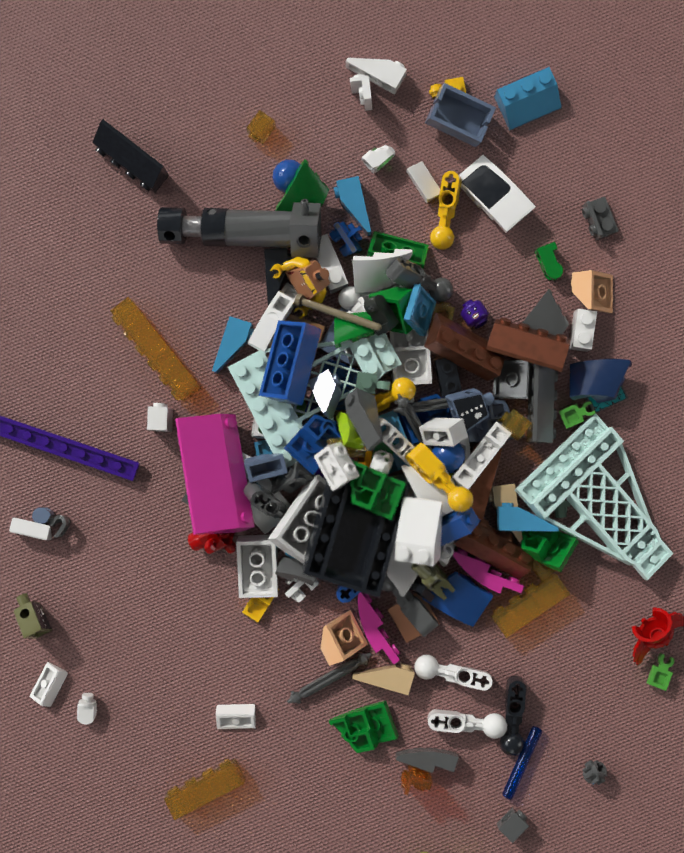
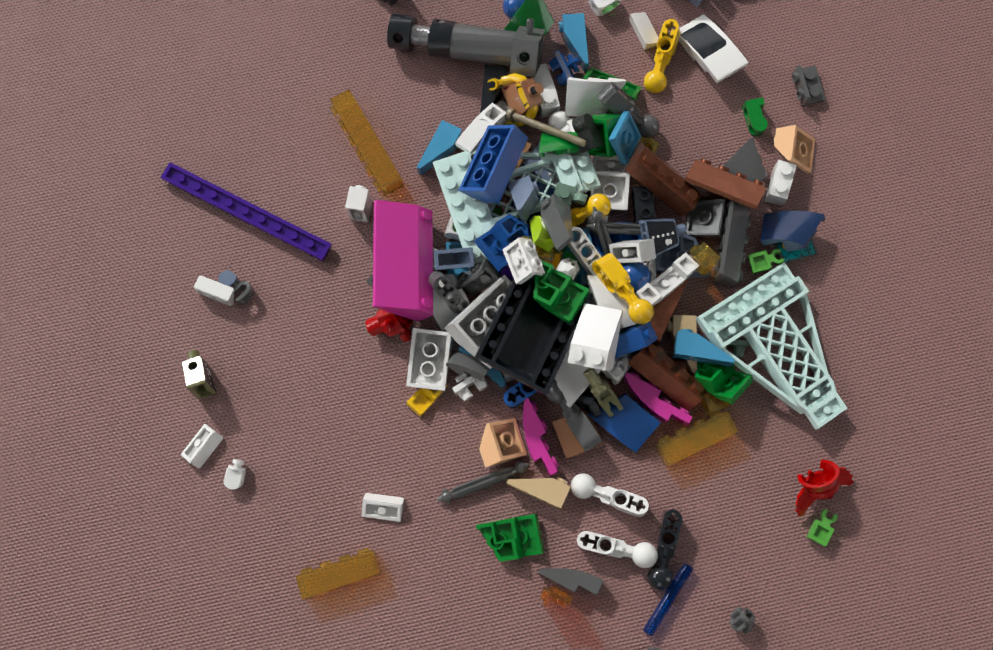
camera: 10 degrees right, 10 degrees down
(474, 314) = (677, 153): dark purple head -> none

